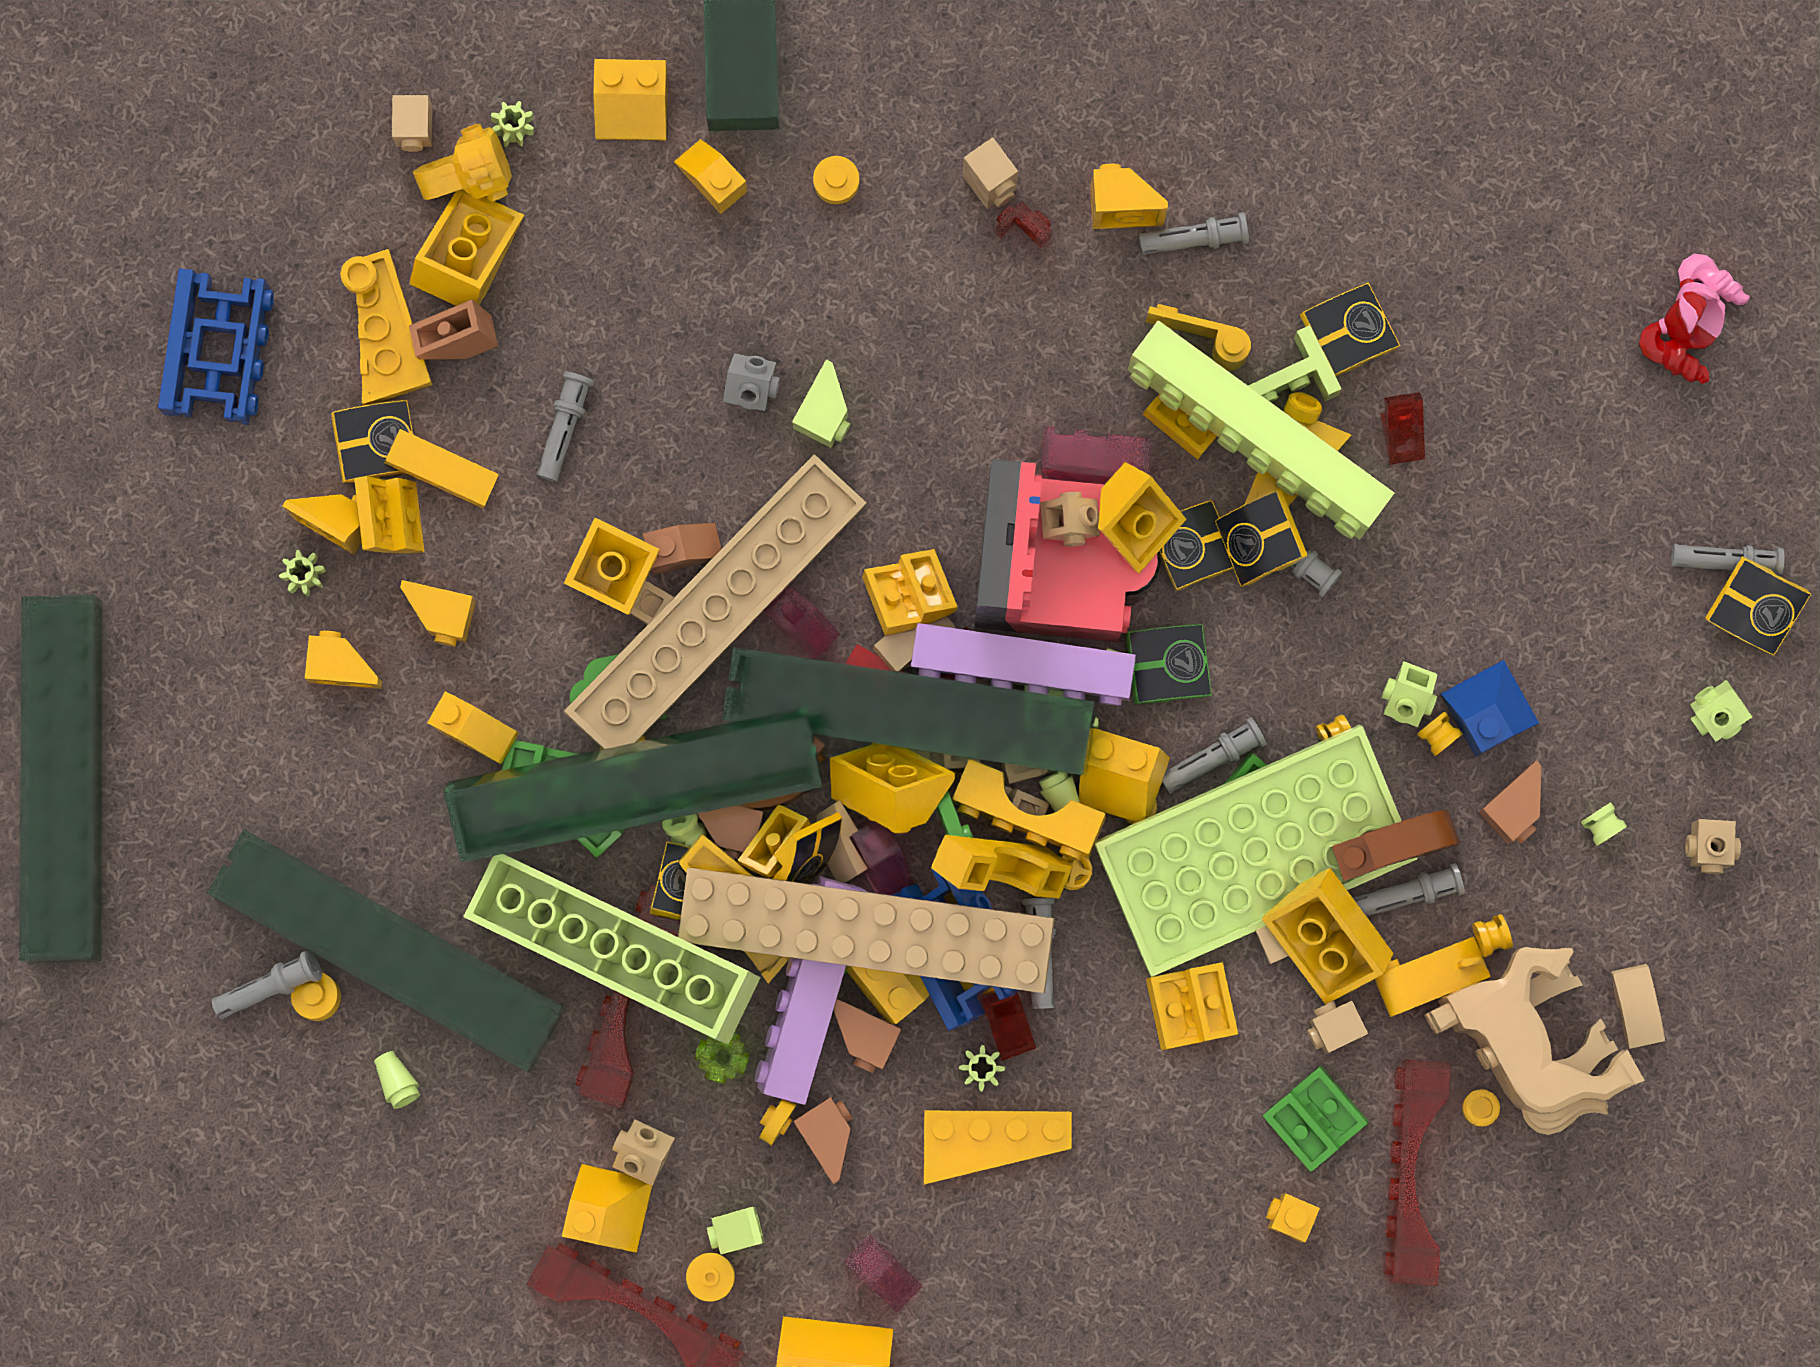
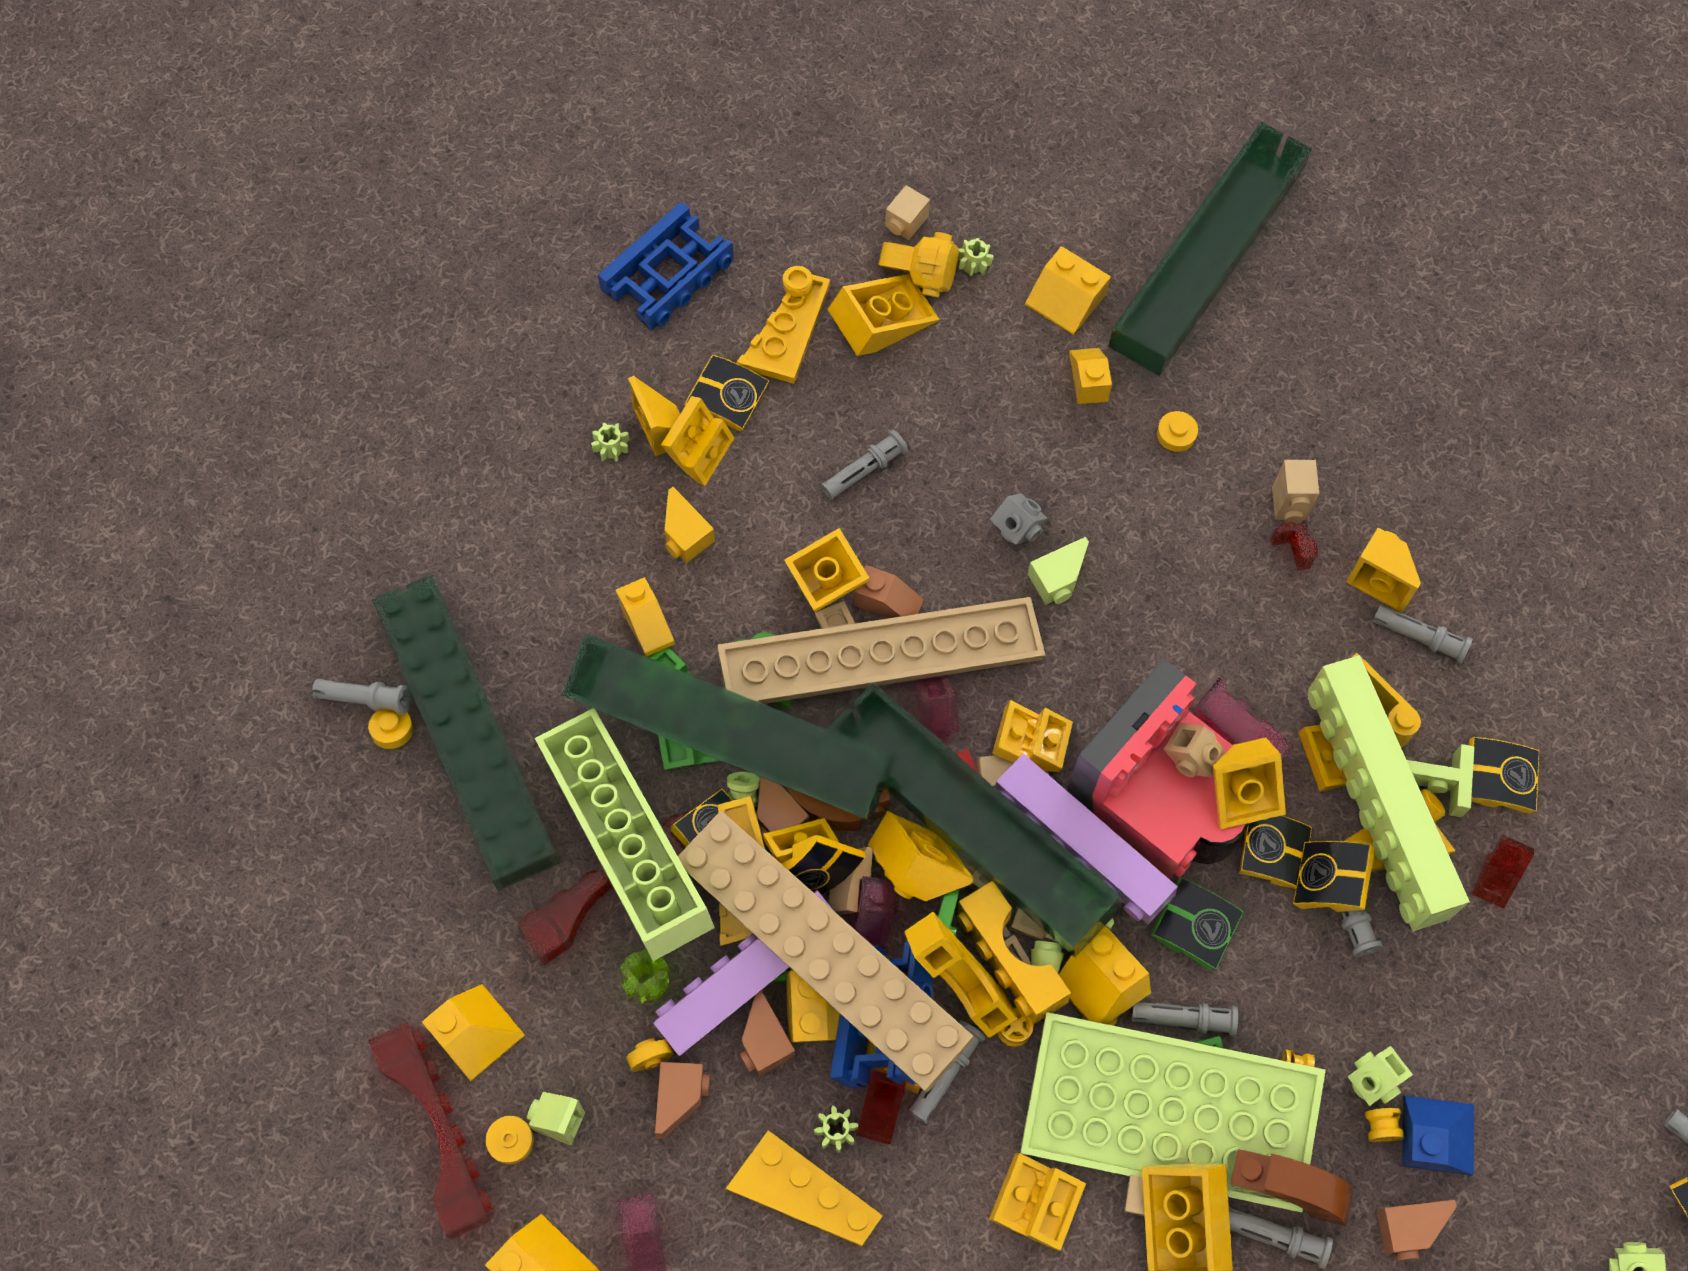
camera: 35 degrees right, 15 degrees down
(61, 779) = (338, 466): clear green brick -> none
(336, 662) = (586, 514): yellow slope -> none
(396, 1081) = (397, 828): yellowish green cone -> none
(441, 468) = (758, 437): yellow tile -> none
(454, 333) = (834, 357): nougat slope -> none
(642, 1151) = (531, 1004): tan brick -> none

